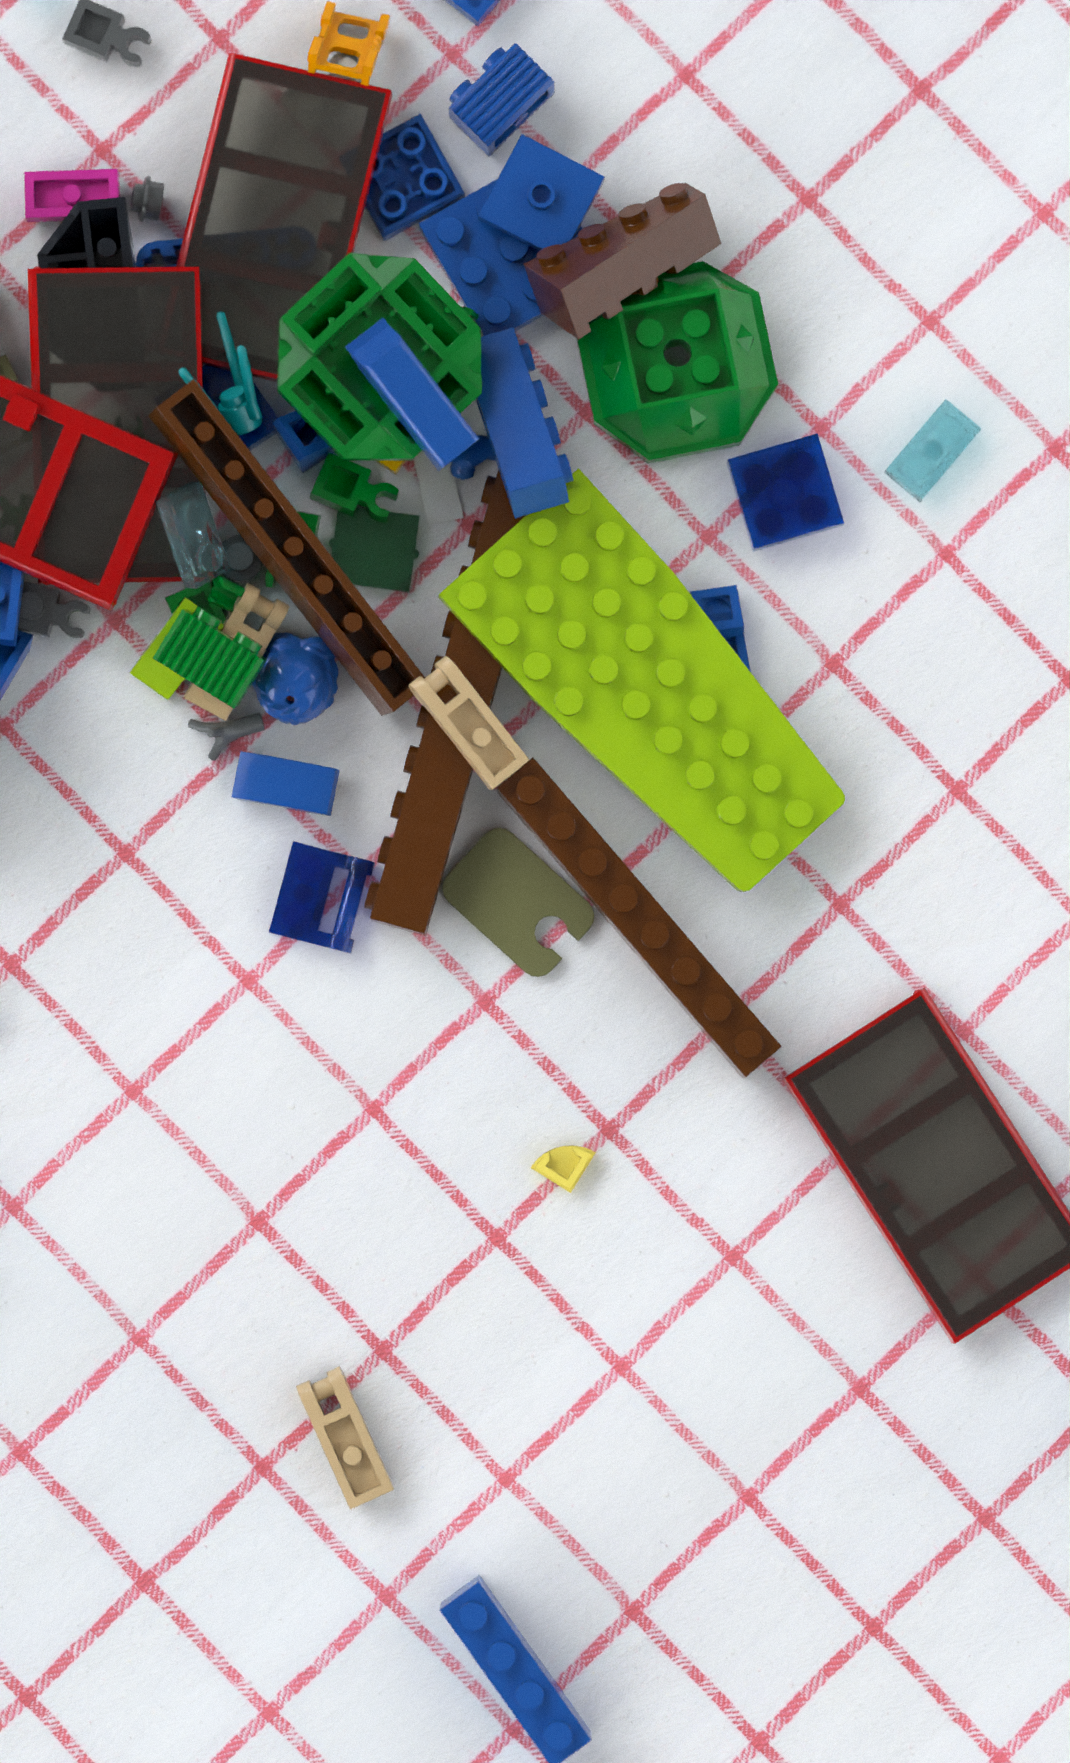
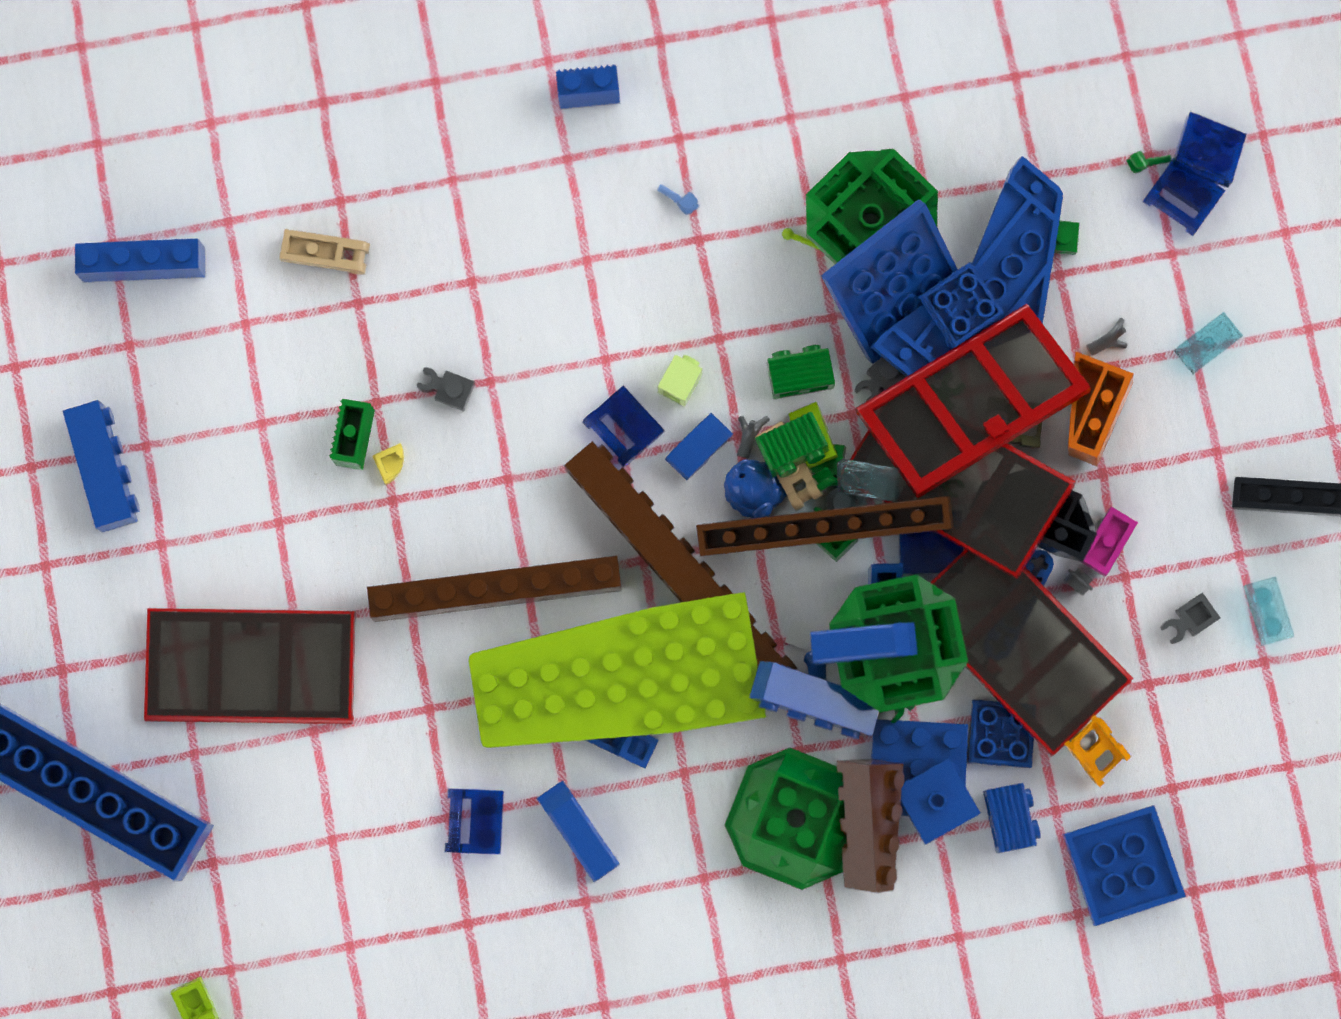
camera: 125 degrees right, 5 degrees down
(104, 716) = (800, 372): none -> green brick
(213, 862) = (680, 379): none -> yellowish green brick
(239, 402) = (925, 551): teal plant -> none
(346, 485) = (840, 586): green plate -> none
(375, 551) = (799, 580): clear green piece -> none
(418, 1149) = (451, 389): none -> dark grey plate
(469, 724) = (661, 562): tan plate -> none
(506, 894) = (558, 529): olive piece -> none
(561, 1233) = (352, 434): none -> green brick
(785, 492) = (679, 830): clear blue plate -> none
(814, 1533) = (101, 465): none -> blue brick
(870, 613) = (578, 831): none -> blue piece
(932, 450) = (648, 932): clear light blue plate -> none
(935, 737) = (485, 821): none -> clear blue plate

